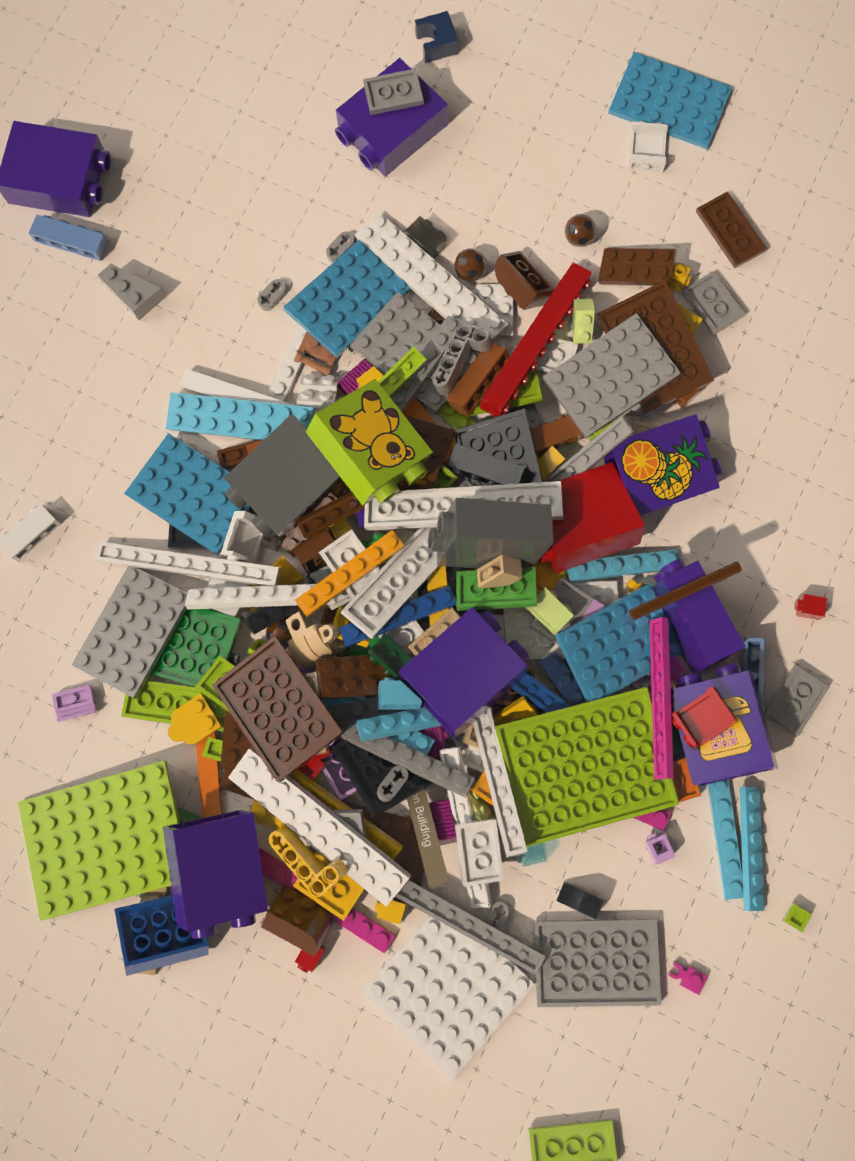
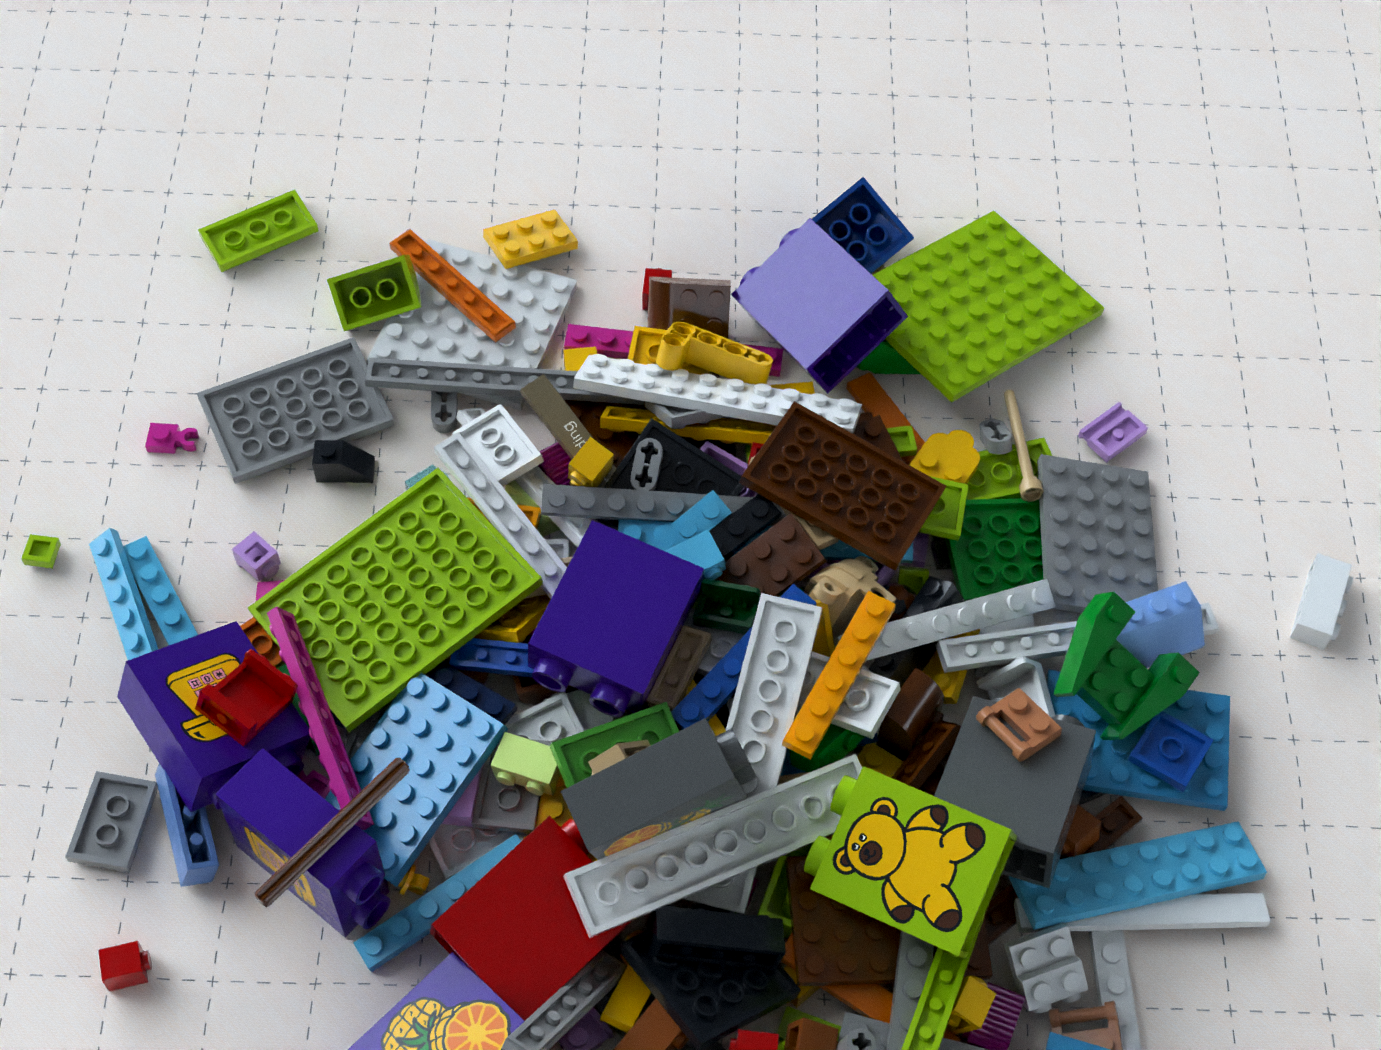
camera: 150 degrees right, 20 degrees down
(149, 548) = (1163, 624): none -> light blue slope
(152, 679) = (1030, 486): none -> tan piece
(155, 730) = (995, 436): none -> light grey beam
(181, 469) = (1170, 750): none -> blue plate
(189, 514) = (1111, 677): none -> green wedge
(258, 501) = (1025, 718): none -> nougat plate
(379, 1044) = (530, 239): none -> yellow plate
(429, 798) = (590, 465): none -> yellow brick
(453, 1023) = (453, 286): none -> orange tile
(509, 1039) = (375, 292): none -> lime slope

